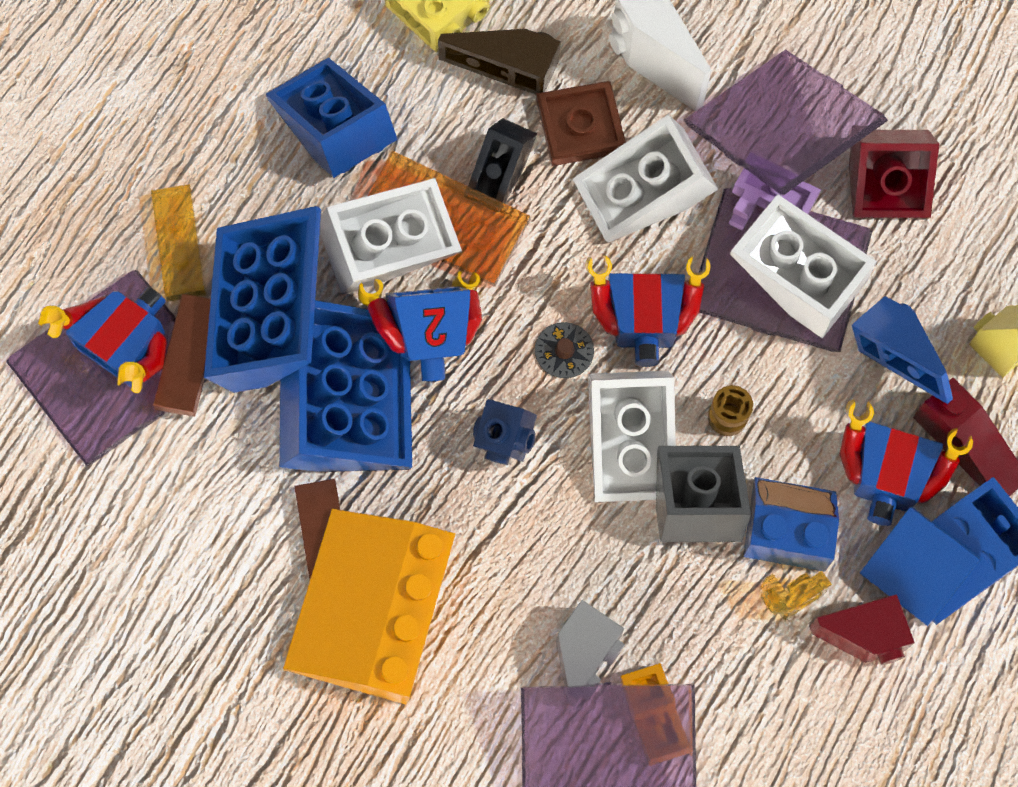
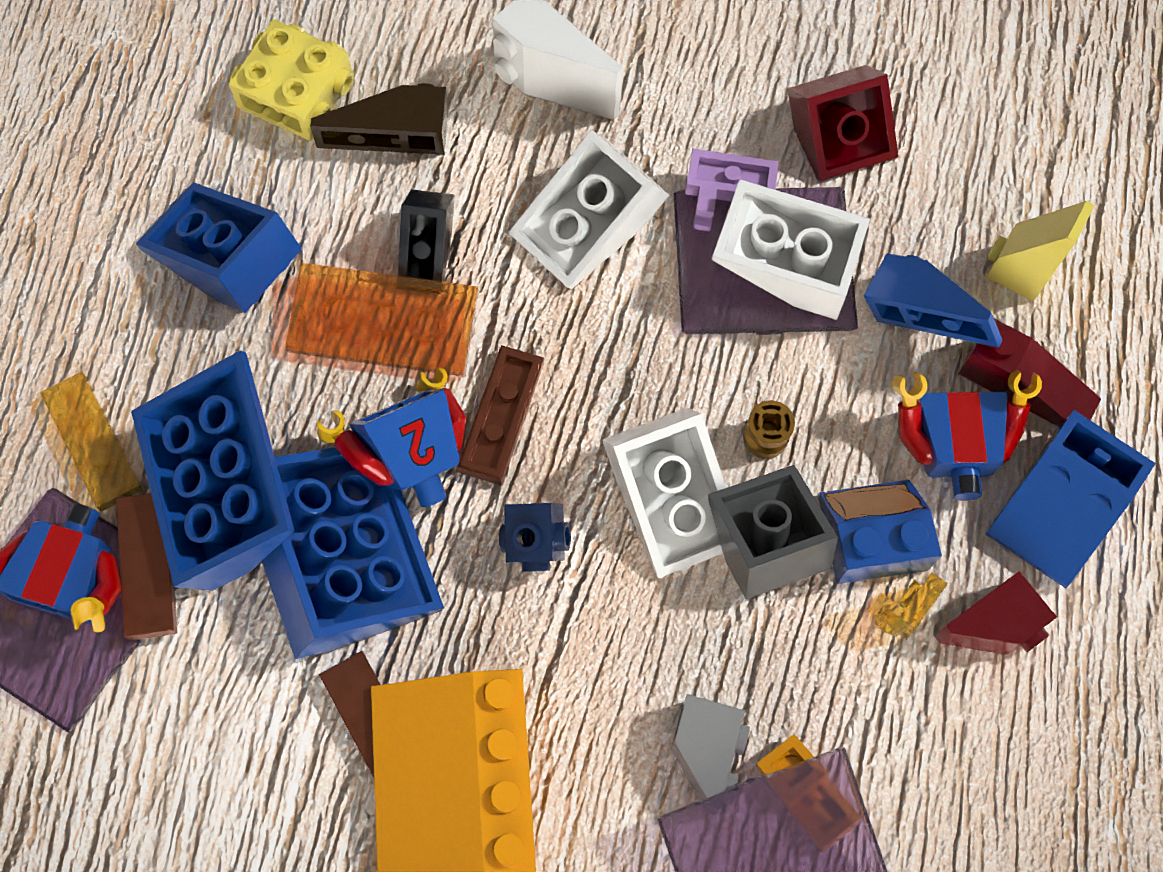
camera: 20 degrees left, 0 degrees up
(387, 234) = (328, 357): white slope -> none
(513, 327) = (501, 415): none -> copper tile
(564, 350) = (565, 422): piece -> none
(580, 122) = (495, 169): copper tile -> none
(646, 308) = (638, 347): torso -> none
(785, 121) = (715, 101): clear purple piece -> none
(920, 565) = (1030, 531): blue tile -> none

